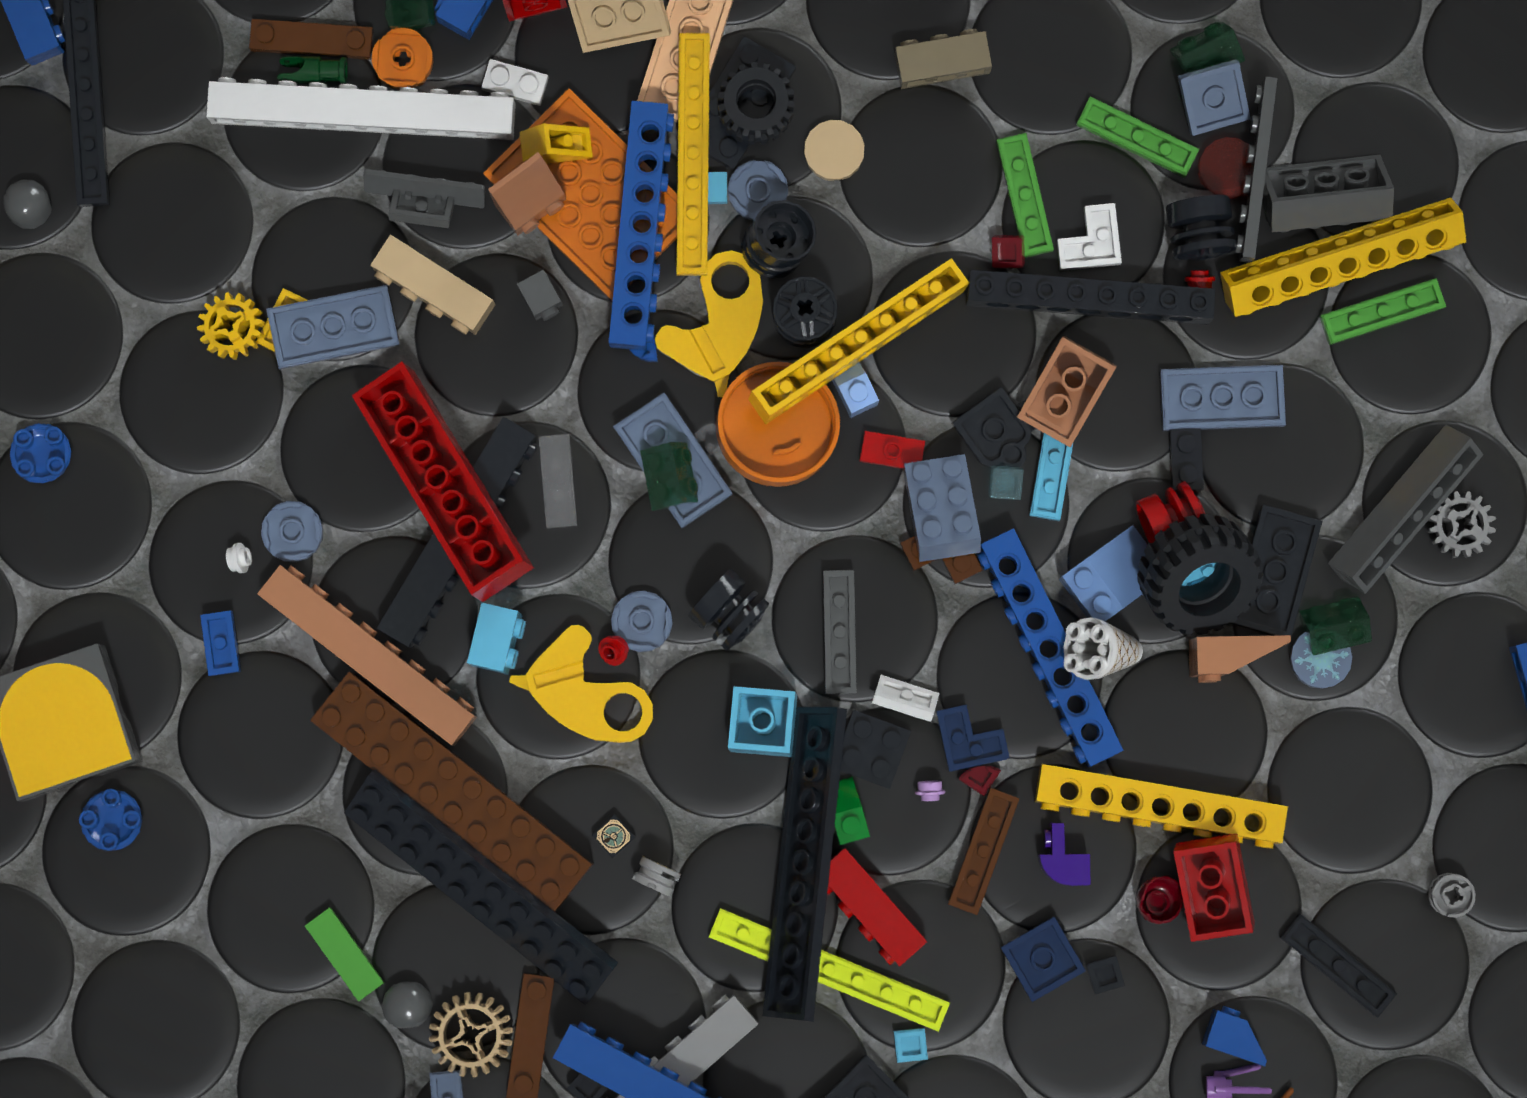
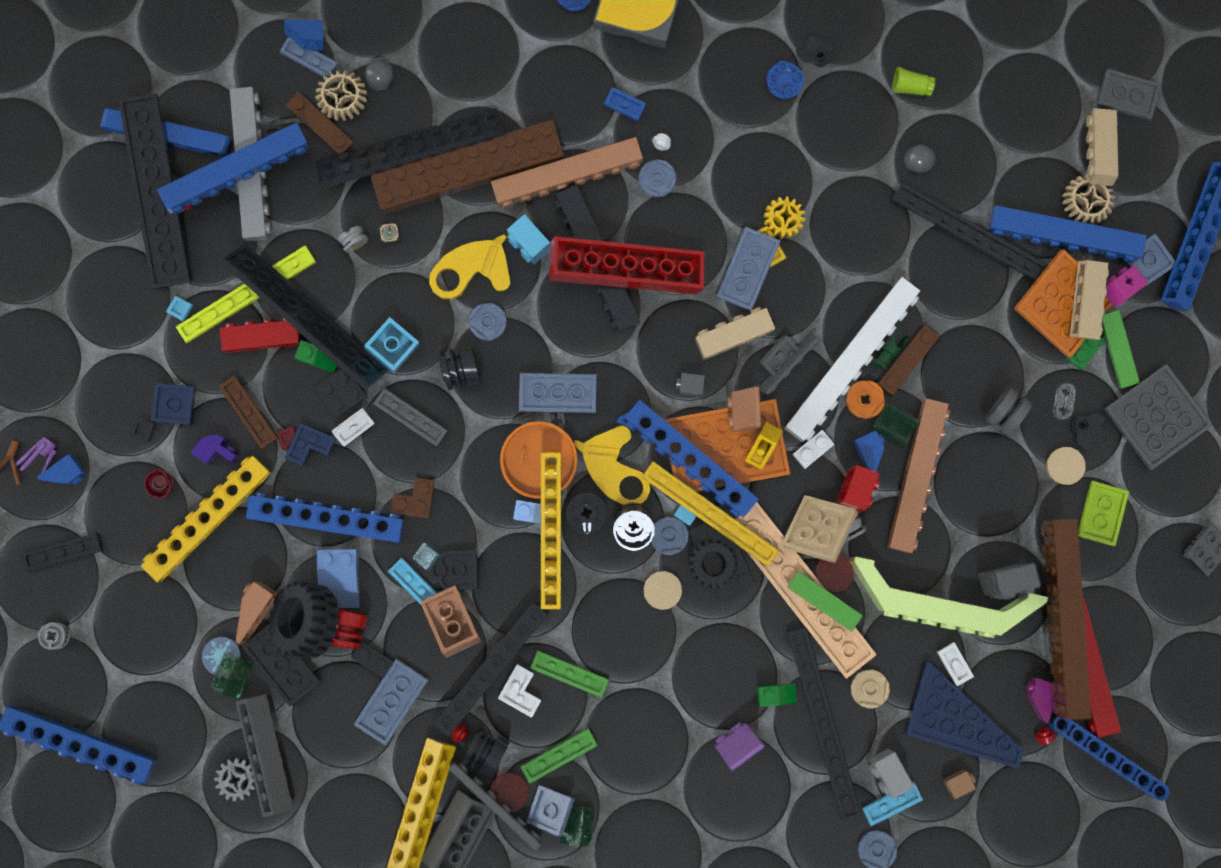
camera: 120 degrees right, 0 degrees up
(344, 954) = (426, 61): bright green tile -> none
(558, 481) = (589, 328): clear tile -> none
(615, 644) = (482, 297): red plate -> none
(669, 475) = (549, 384): clear green bracket -> none
(890, 450) = (484, 509): red plate -> none
(930, 790) = (298, 407): lavender plate -> none
(942, 58) = (671, 681): dark tan brick -> none
(942, 508) = (434, 512): sand blue brick -> none
(1008, 251) = (545, 643): dark red plate -> none
(1098, 649) = (303, 540): white cone -> none
(1214, 887) = (143, 514): red brick -> none
(1382, 311) = (376, 819): bright green tile -> none

